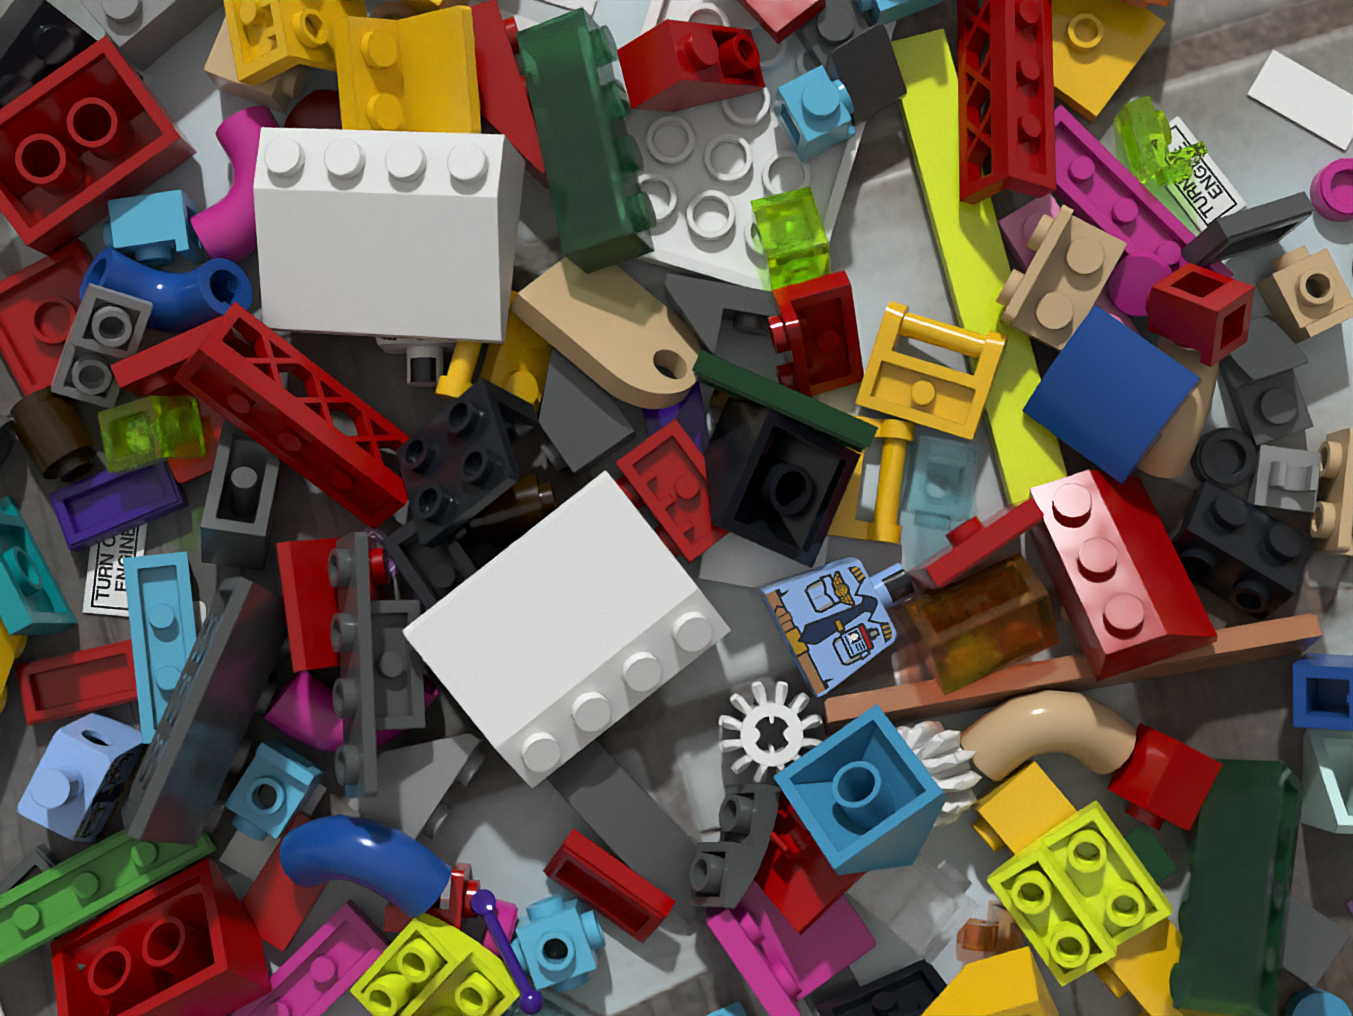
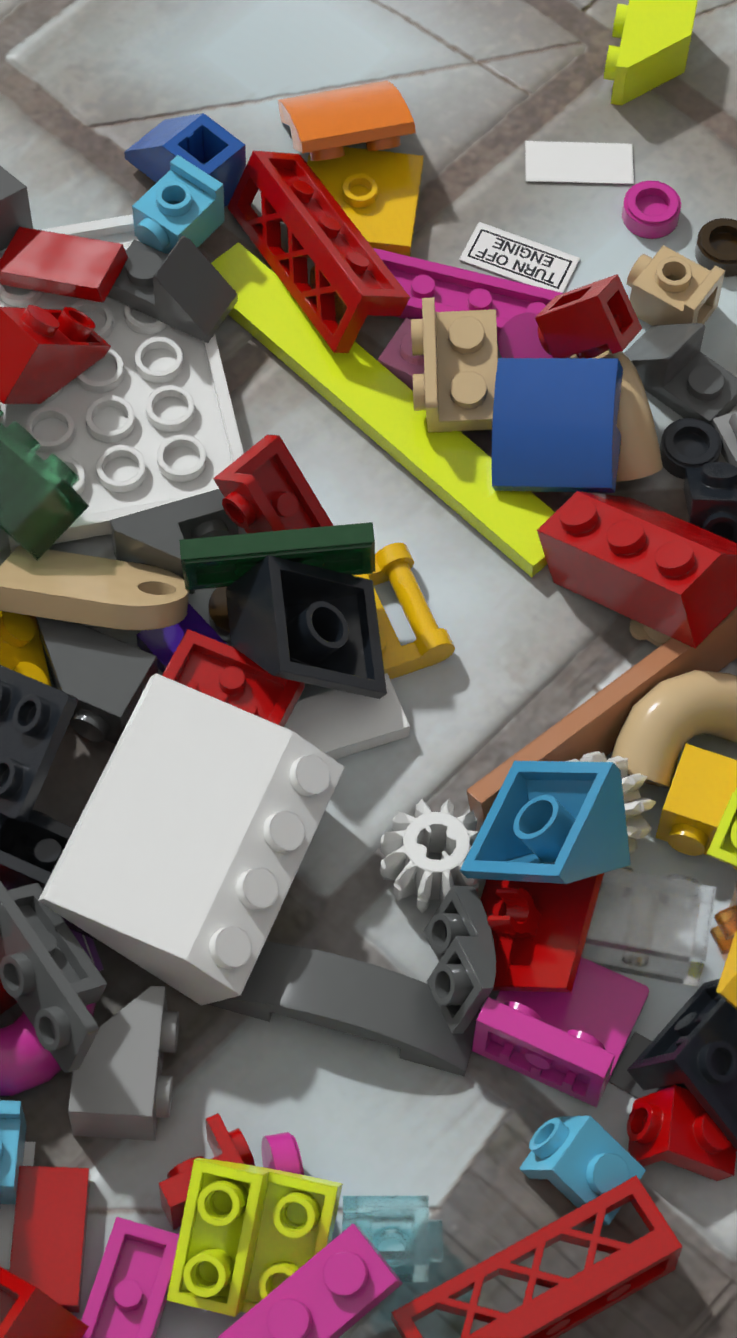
camera: 30 degrees left, 25 degrees down
(366, 855) = (109, 1129): blue cylinder -> none
(482, 905) = (254, 1132): dark purple hinge -> none
(514, 511) = (71, 784): dark brown brick -> none
(565, 921) = (348, 1158): medium azure brick -> none
(609, 886) = (365, 1068): red tile -> none
(791, 237) = (203, 438): clear neon green bracket -> none
(814, 113) = (172, 324): medium azure brick -> none
(835, 617) = (429, 727): torso -> none
(924, 390) = (403, 509): yellow plate -> none
(953, 463) = (456, 574): clear light blue brick -> none
(975, 542) = (517, 599): red plate -> none
(980, 622) = (559, 649): clear orange slope -> none
(1146, 142) = (465, 245): clear neon green bracket -> none
(1248, 230) = (591, 256): dark grey tile -> none

